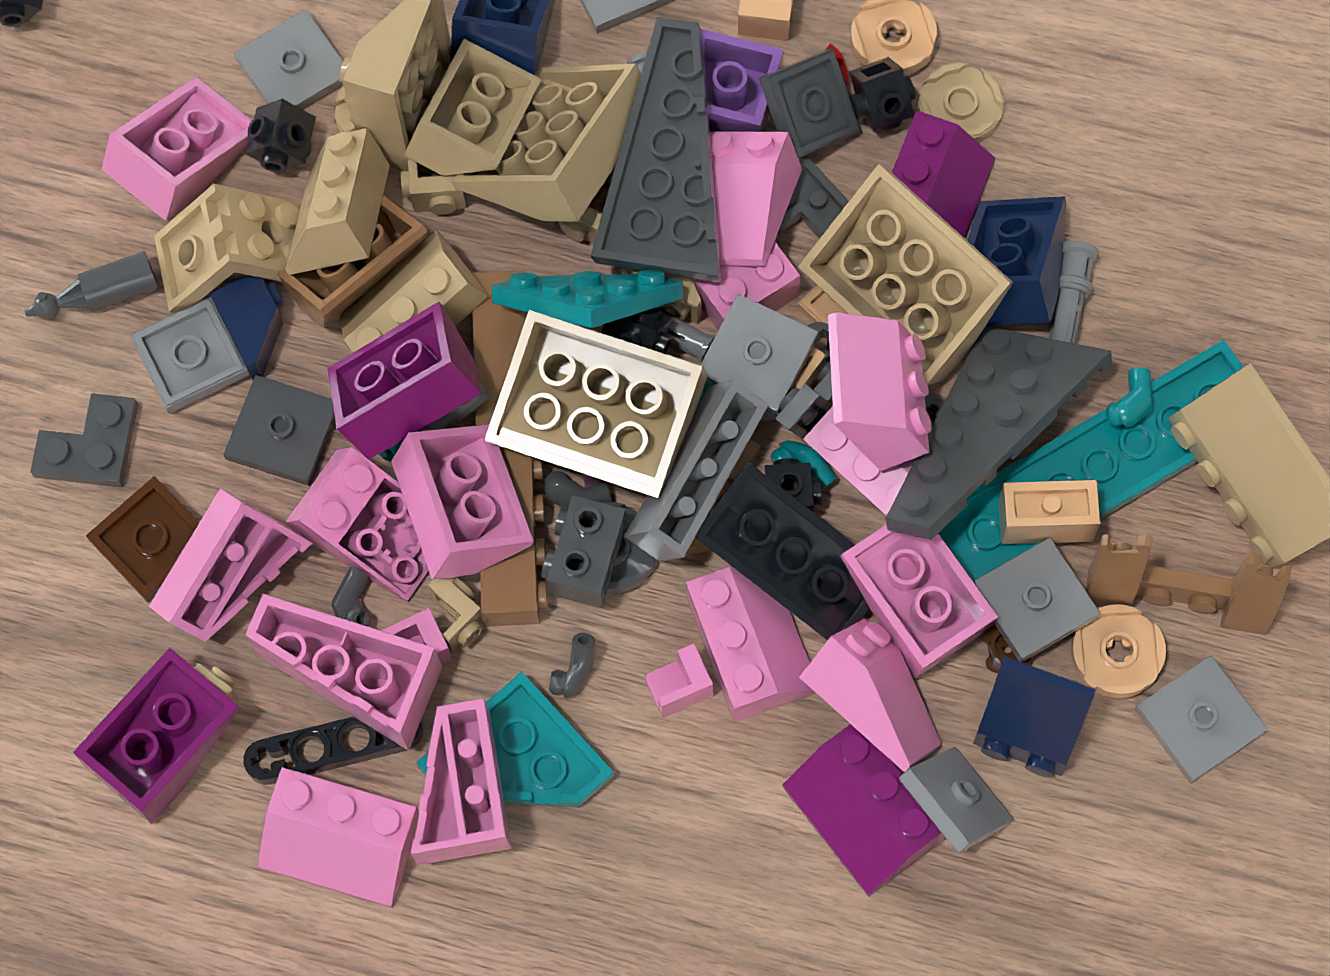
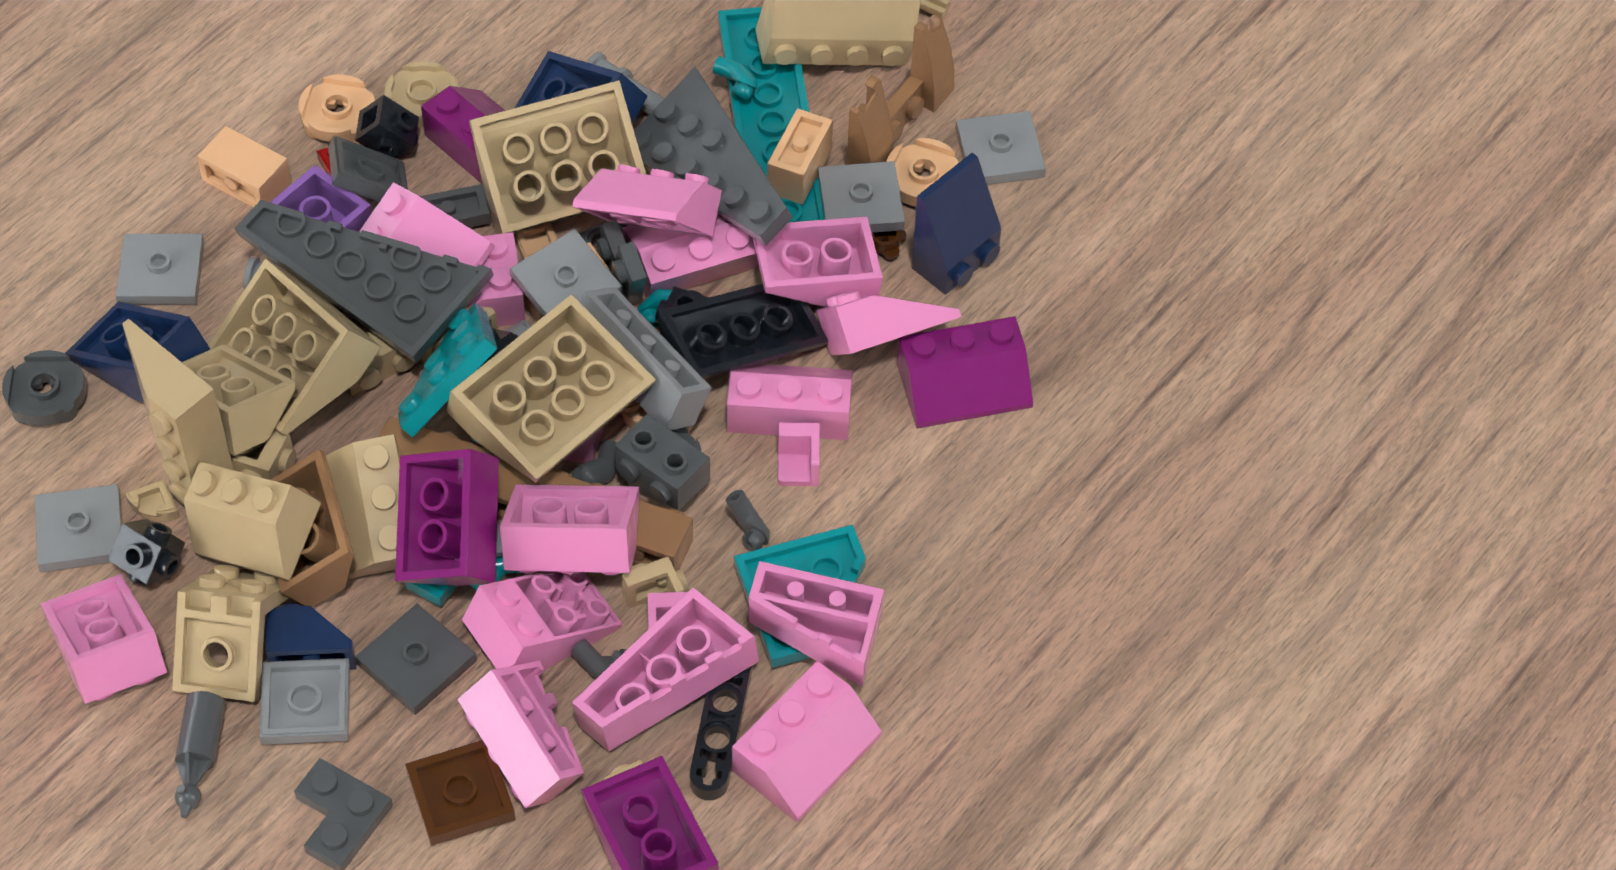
camera: 70 degrees left, 15 degrees down
(956, 799) = (994, 306): light grey plate -> none

